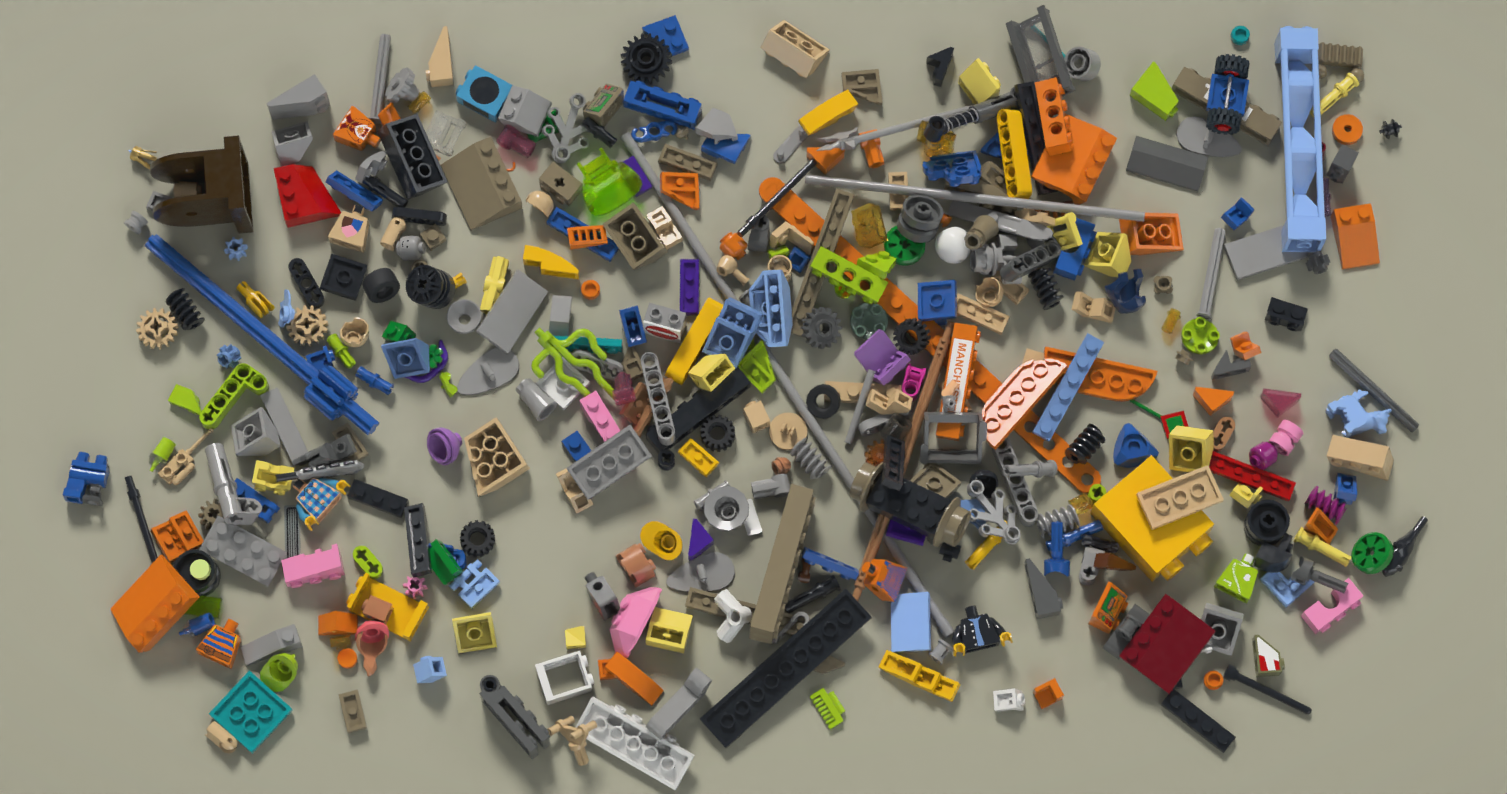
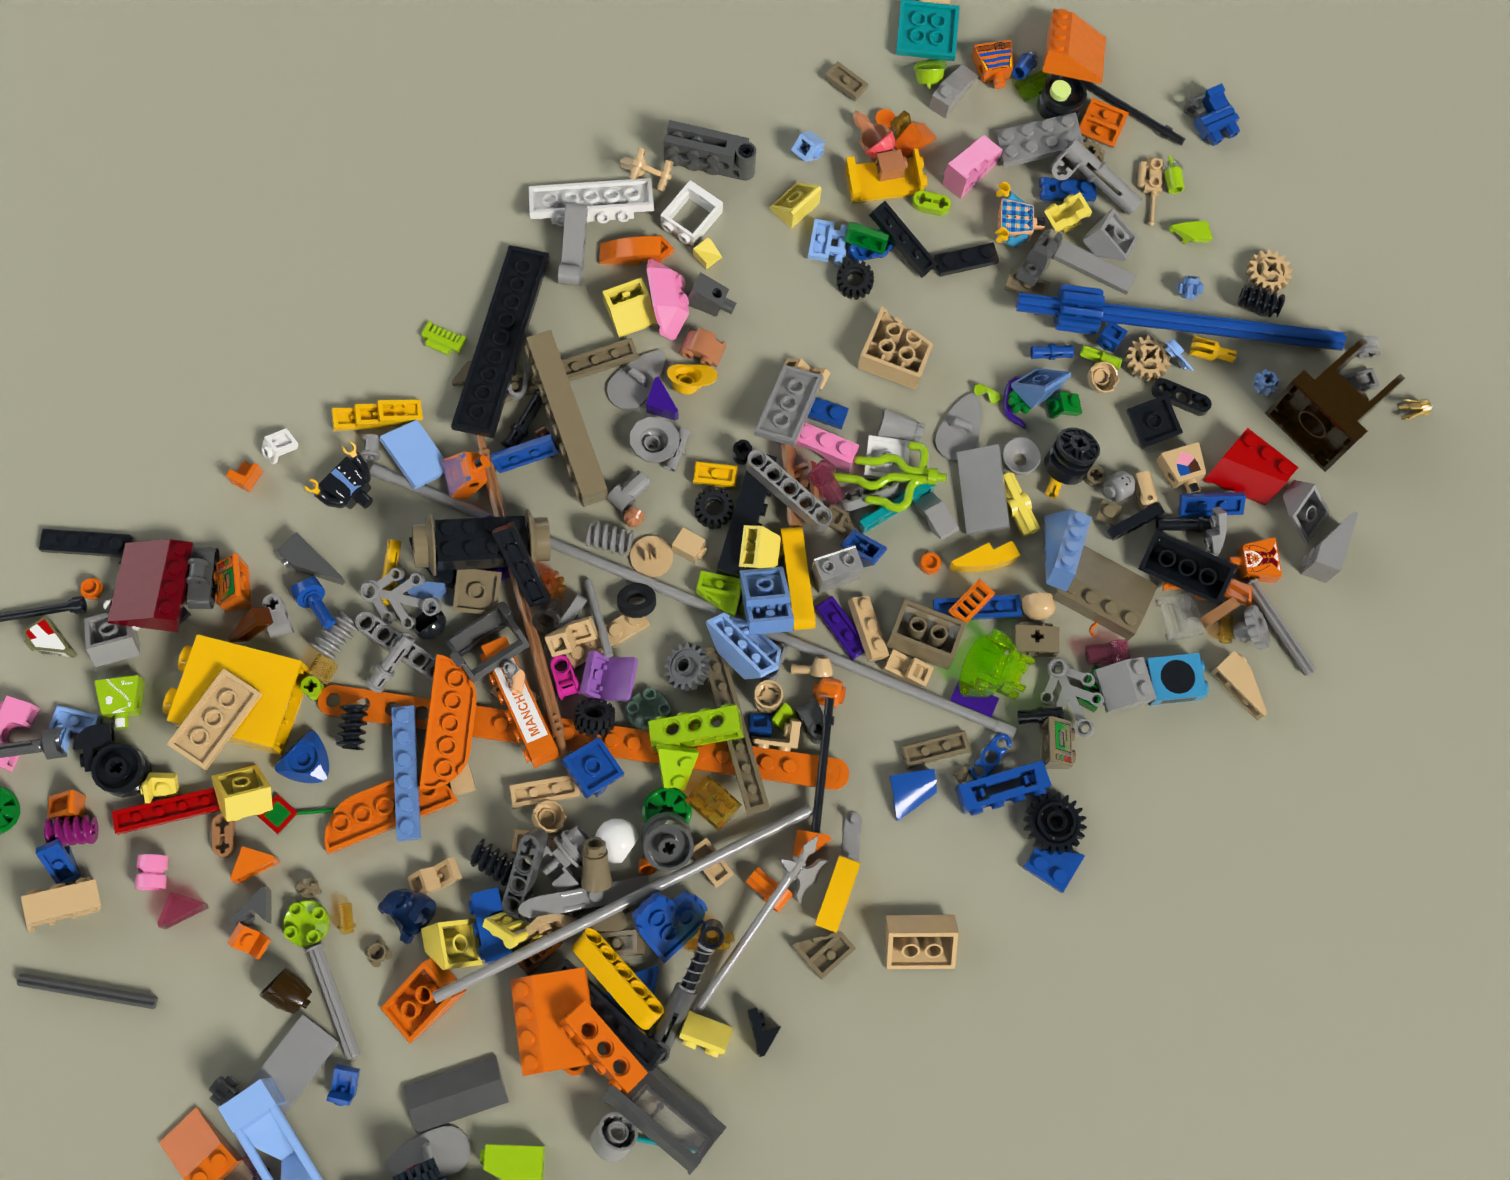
camera: 140 degrees right, 0 degrees up
(231, 398) = (1159, 254): lime beam -> none
(292, 531) = (1001, 175): sticker -> none
(331, 470) = (1031, 240): light grey sword -> none
(381, 285) = (1116, 433): black tyre -> none
(413, 591) = (873, 201): bright pink gear -> none
(424, 112) = (1219, 612): none -> medium nougat beam
(443, 445) = (945, 333): medium lavender piece -> none
(489, 227) = (1065, 539): none -> medium blue wedge
(671, 272) = (868, 628): none -> tan plate
(681, 187) = (921, 716): orange wing -> none
(717, 126) = (934, 800): light grey slope -> none
(732, 609) = (577, 351): white piece -> none
(752, 522) = (627, 455): white sticker -> none
(1077, 534) = (313, 631): blue pin -> none
(1100, 543) = (281, 642): black axle -> none
(1235, 293) = (287, 992): none -> dark brown helmet
(1263, 455) = (165, 838): magenta head -> none
(1286, 314) = (228, 1010): black bracket -> none
(1314, 543) = (62, 784): light yellow pin -> none
(1355, 416) = (89, 945): light blue animal -> none

